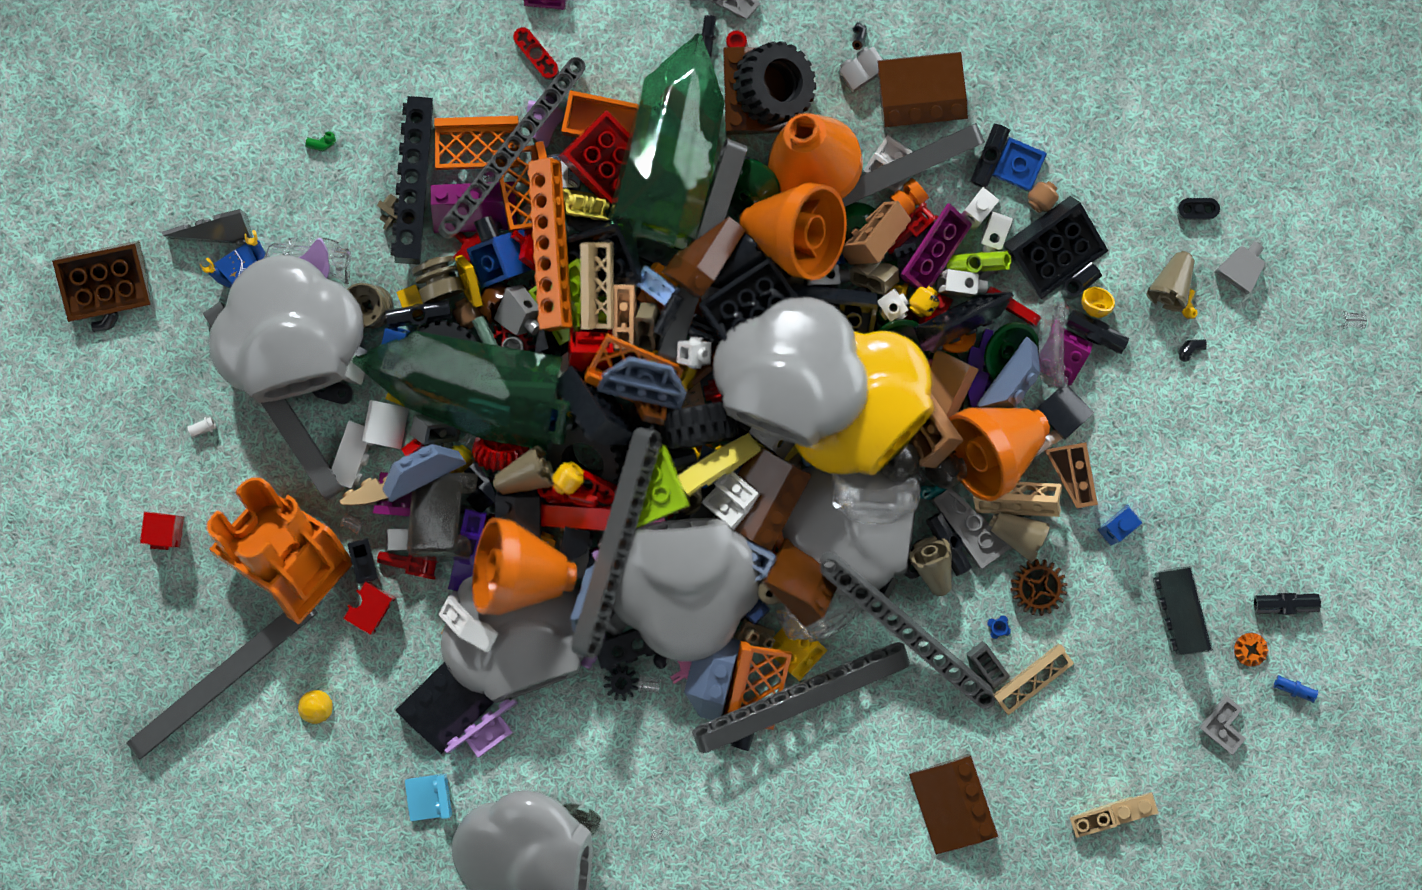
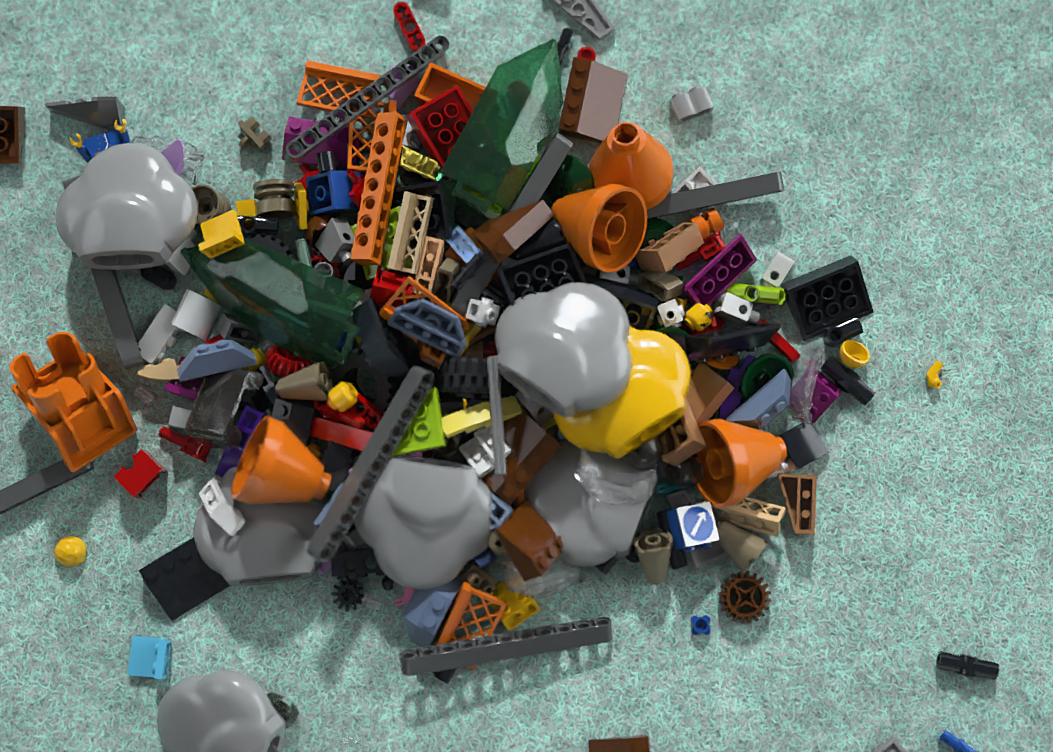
camera: 15 degrees right, 5 degrees down
(202, 427) = (36, 280): white pin -> none
(323, 143) = (208, 61): green arm -> none
(362, 560) = (145, 430): black slope -> none
(394, 333) = (221, 234): none -> yellow bracket
(422, 108) = (257, 168): black brick -> none
(465, 313) = (291, 233): medium nougat head -> none
(486, 734) = (216, 611): lavender bracket -> none
(736, 460) = (496, 416): none -> light grey axle
(797, 78) = (590, 101): black tyre -> none
(861, 31) = (695, 78): black arm -> none
(902, 622) = (618, 616): dark grey beam -> none
(903, 251) = (694, 267): black tile -> none
(922, 89) = (739, 132): reddish brown slope -> none
(968, 527) = (692, 526): none -> piece
(977, 651) = (671, 644): dark grey slope -> none
(980, 207) = (768, 247): white torso -> none
(995, 144) = (793, 196): black piece -> none
(1019, 164) = (810, 218): blue plate -> none
(1028, 673) = (718, 673): tan fence -> none
(1043, 197) = (825, 250): medium nougat head -> none
(1120, 525) = (830, 558): blue torso -> none
(1173, 283) = (925, 353): dark tan cone -> none
(1182, 611) = (871, 649): black slope -> none
(1189, 347) = (928, 413): black arm -> none
(1197, 208) = (961, 291): black plate -> none
(1241, 650) = (916, 700): orange gear -> none
(1243, 267) = (990, 354): light grey torso -> none

